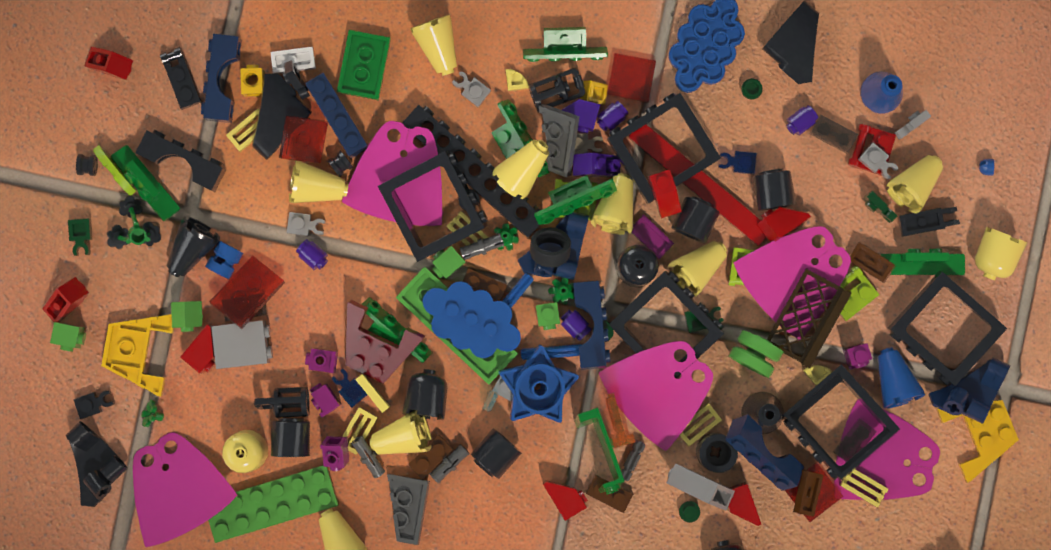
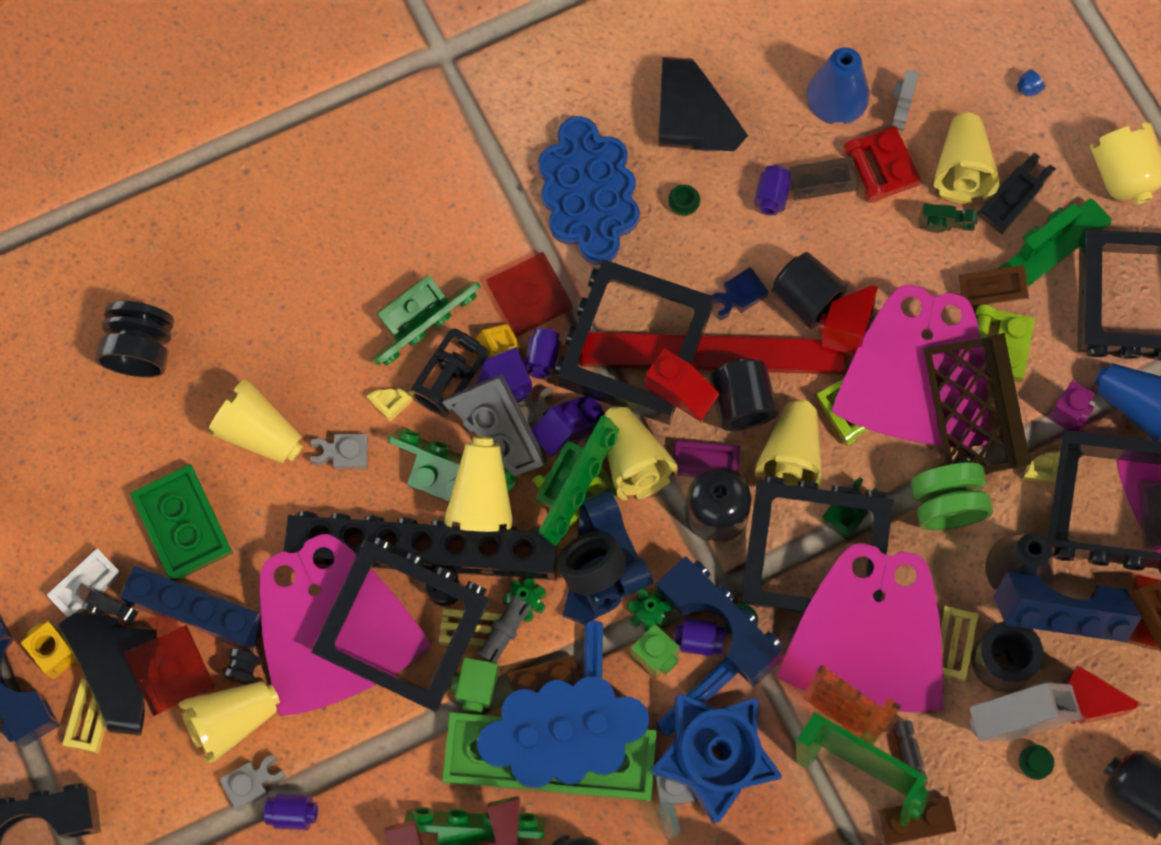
camera: 30 degrees left, 15 degrees down
(875, 159) = (896, 167): light grey plate -> none

